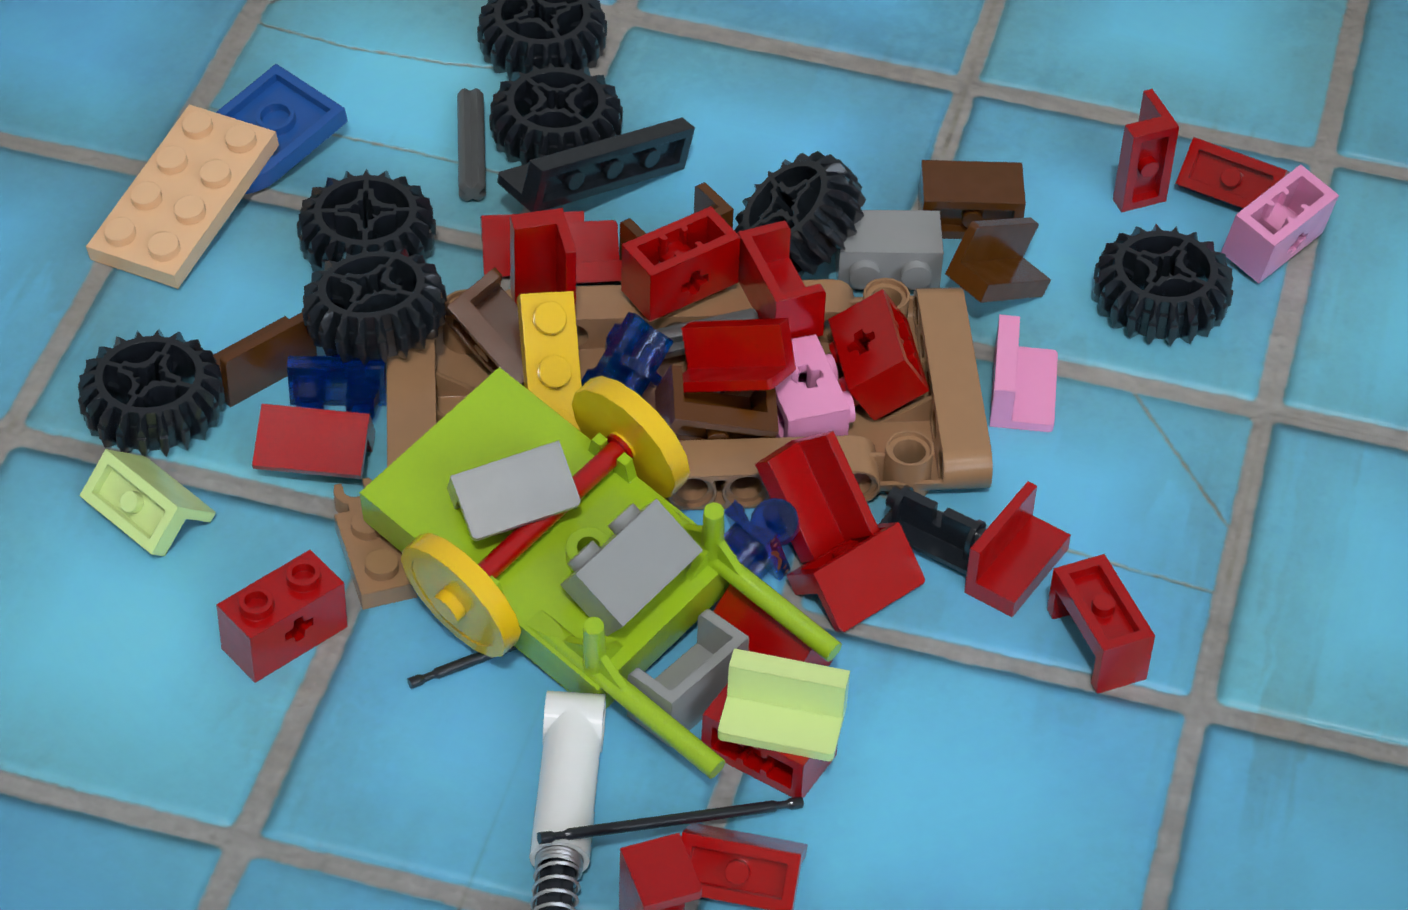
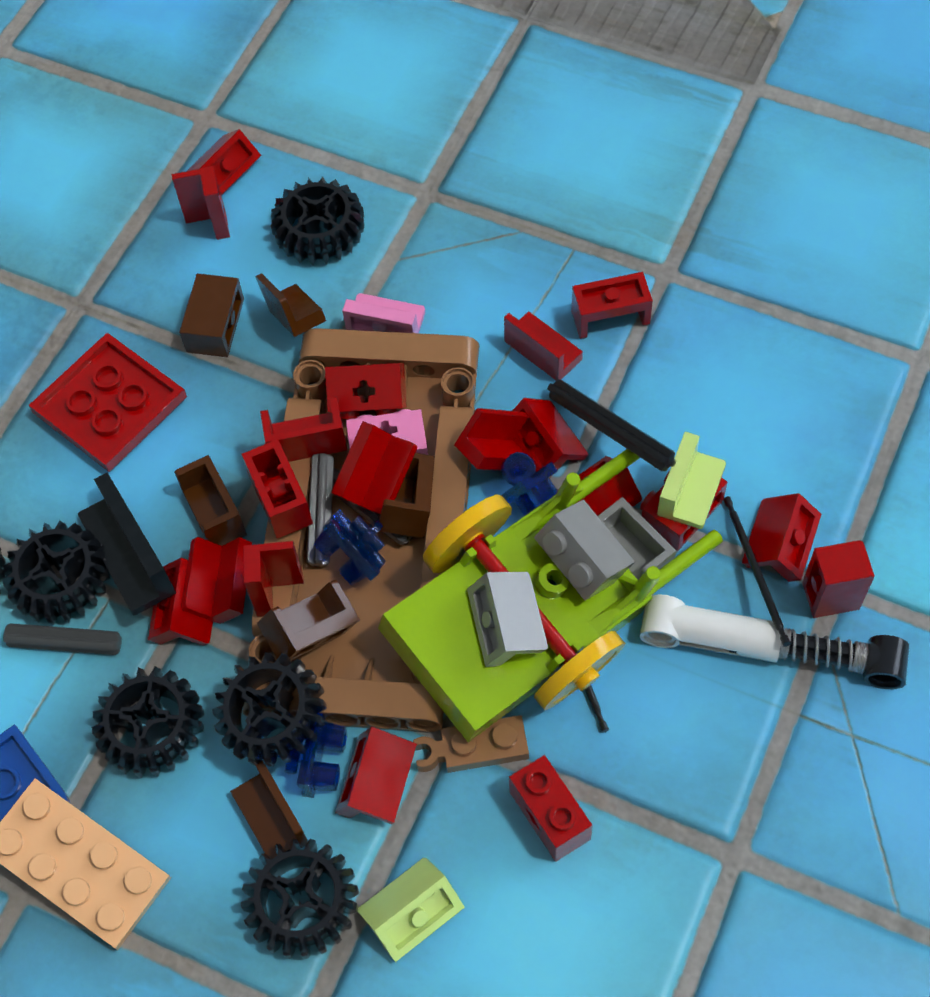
camera: 75 degrees left, 15 degrees up
(550, 349) = (350, 589): yellow plate -> none
(813, 110) = (108, 401): none -> red plate
(817, 201) = (219, 401): black gear -> none
(864, 612) = (612, 425): none -> black axle
(893, 246) = (251, 372): light grey brick -> none
(931, 532) = (516, 382): black hinge -> none
(1279, 223) = (284, 144): bright pink brick -> none

